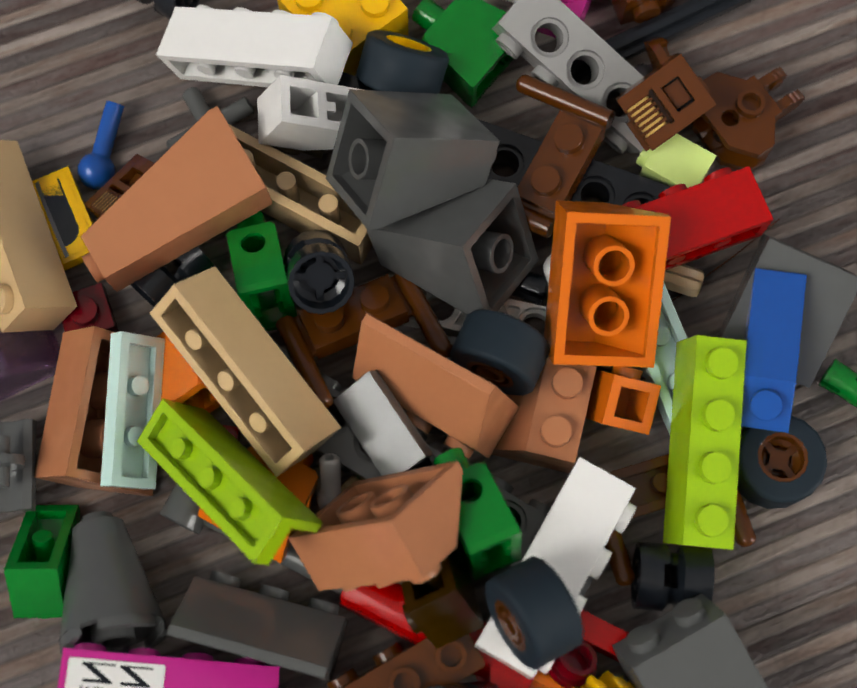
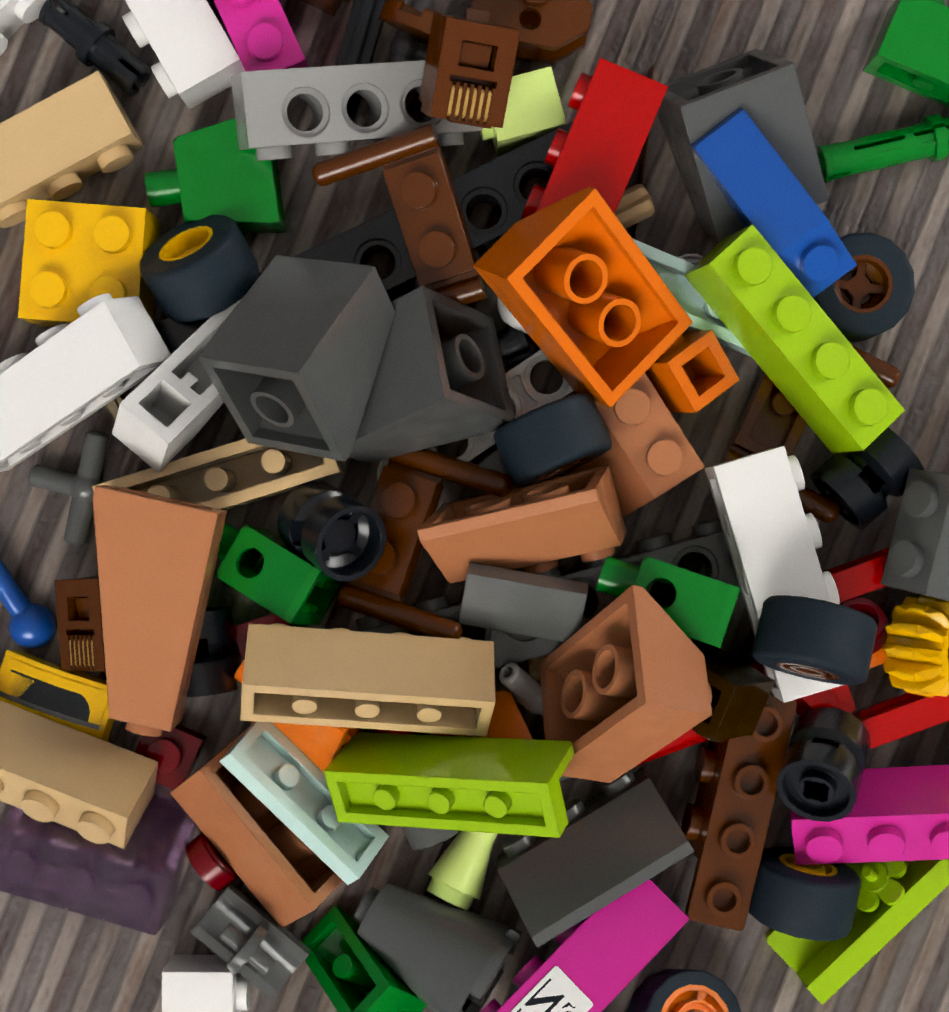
camera: 45 degrees left, 15 degrees up
(37, 397) = (209, 863): none -> dark red tile
(178, 558) = (462, 868): none -> yellowish green cone

